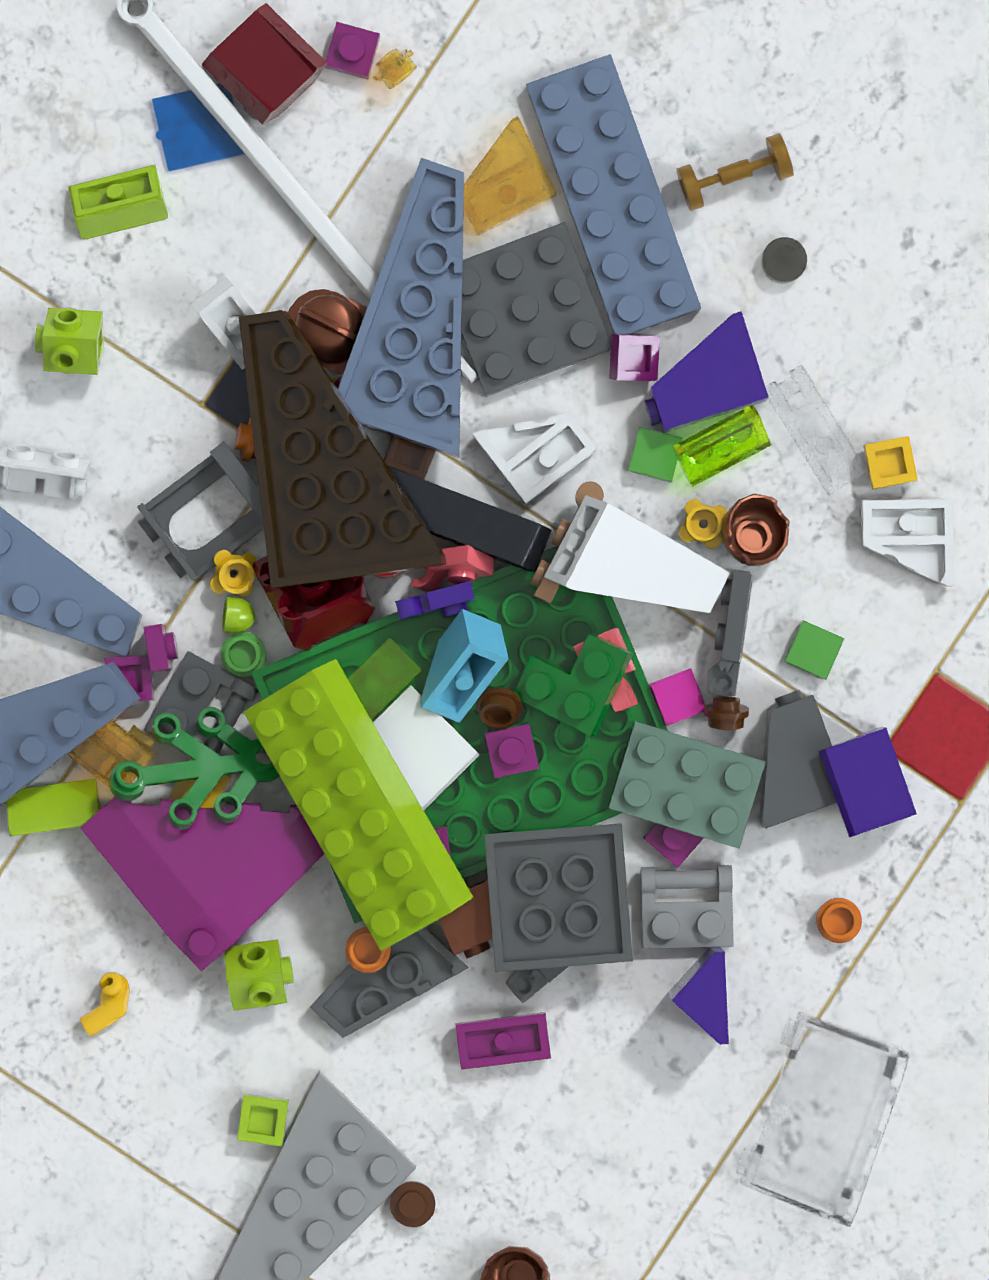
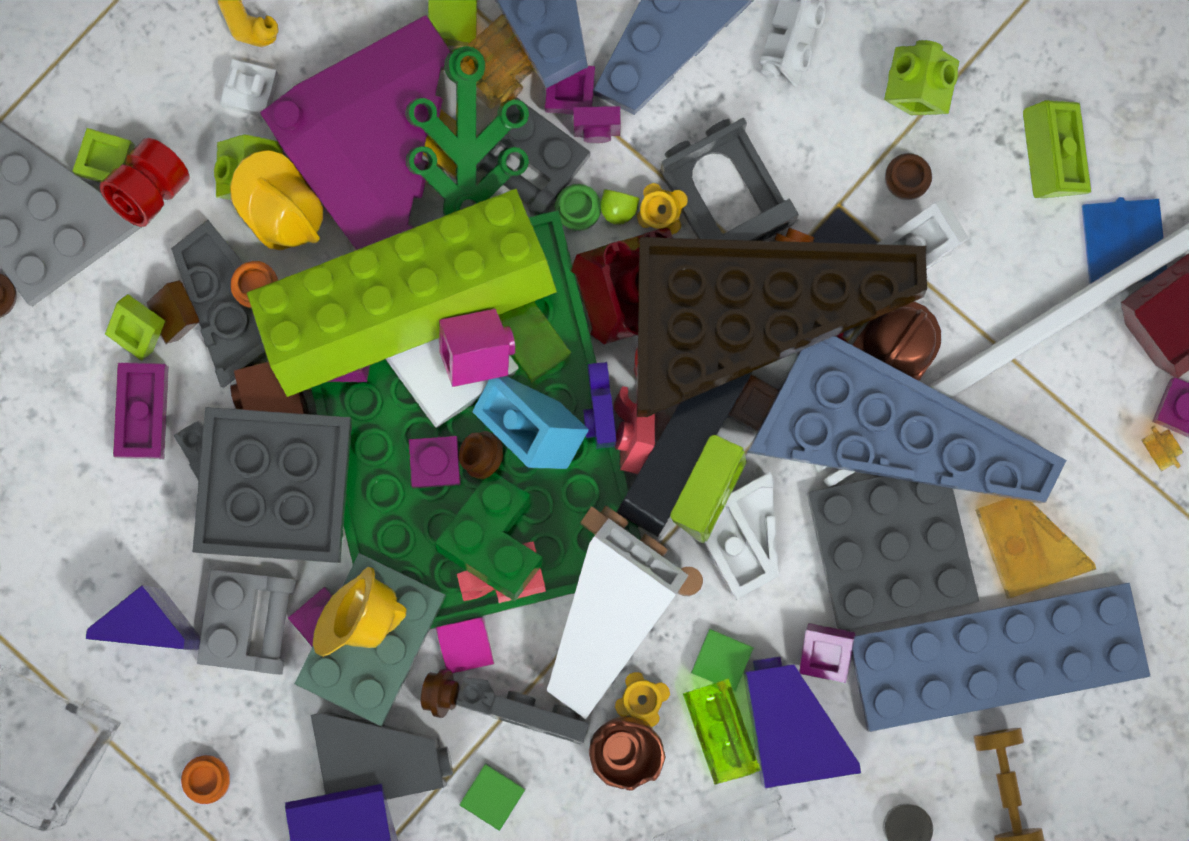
camera: 100 degrees right, 5 degrees down
(166, 341) = (908, 176): none -> reddish brown plate
(172, 991) = (249, 87): none -> white tile
(285, 940) = (276, 201): none -> yellow piece
(287, 1074) = (147, 178): none -> red wheel
(401, 726) = (475, 347): none -> dark pink brick
(403, 1026) = (176, 309): none -> reddish brown tile
(424, 1060) = (134, 327): none -> lime plate
(498, 489) = (709, 487): none -> lime slope
(668, 797) = (358, 615): none -> yellow piece

